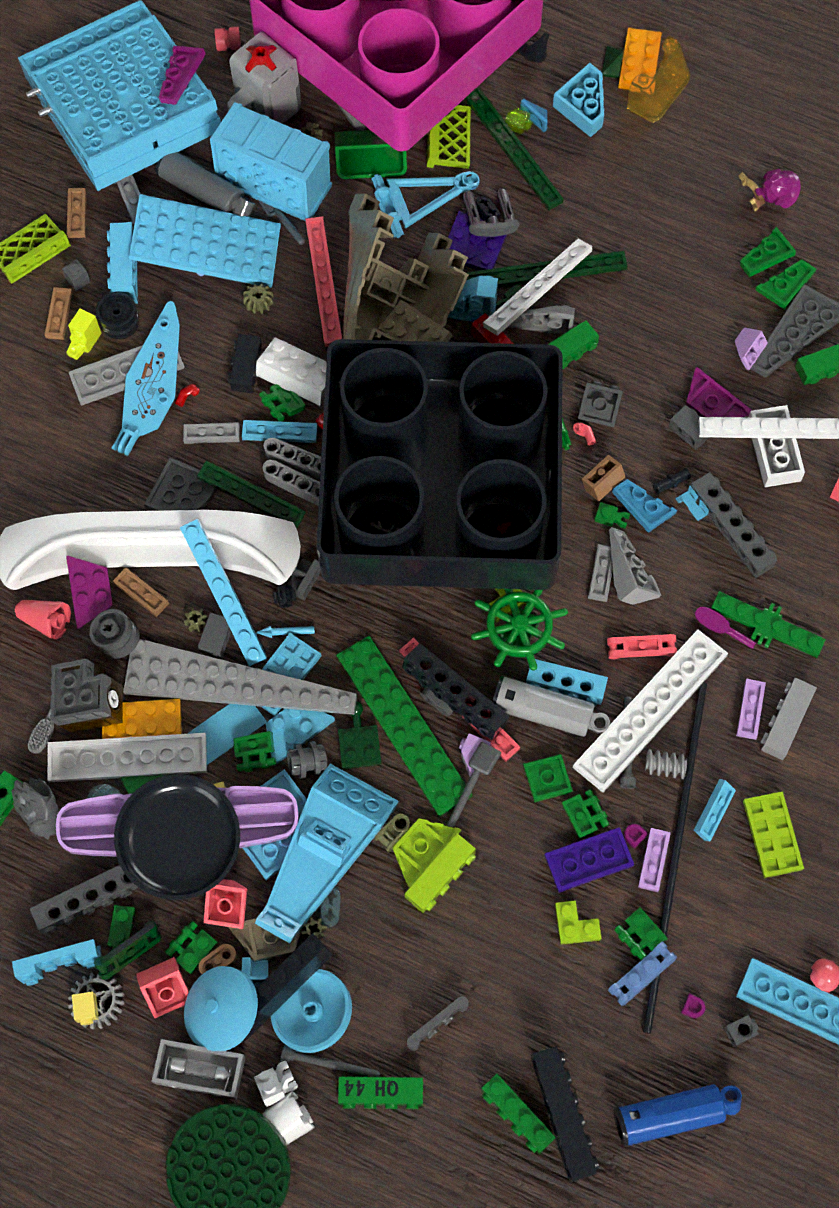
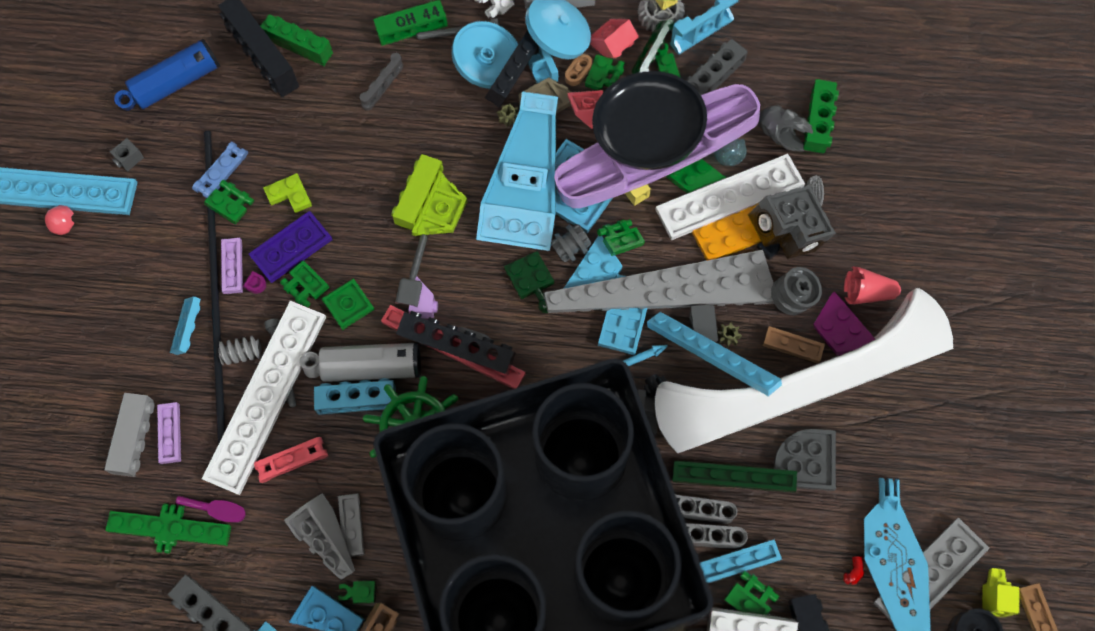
camera: 160 degrees right, 0 degrees up
(211, 433) = (808, 537): light grey tile -> none
(227, 724) = (656, 252): medium azure sticker -> none
(335, 908) = (496, 136): clear light blue beam -> none
(392, 833) = (471, 211): olive piece -> none
(403, 725) = (499, 310): green plate -> none
(693, 1007) = (172, 163): magenta tile -> none
(773, 834) = (126, 323): lime plate -> none

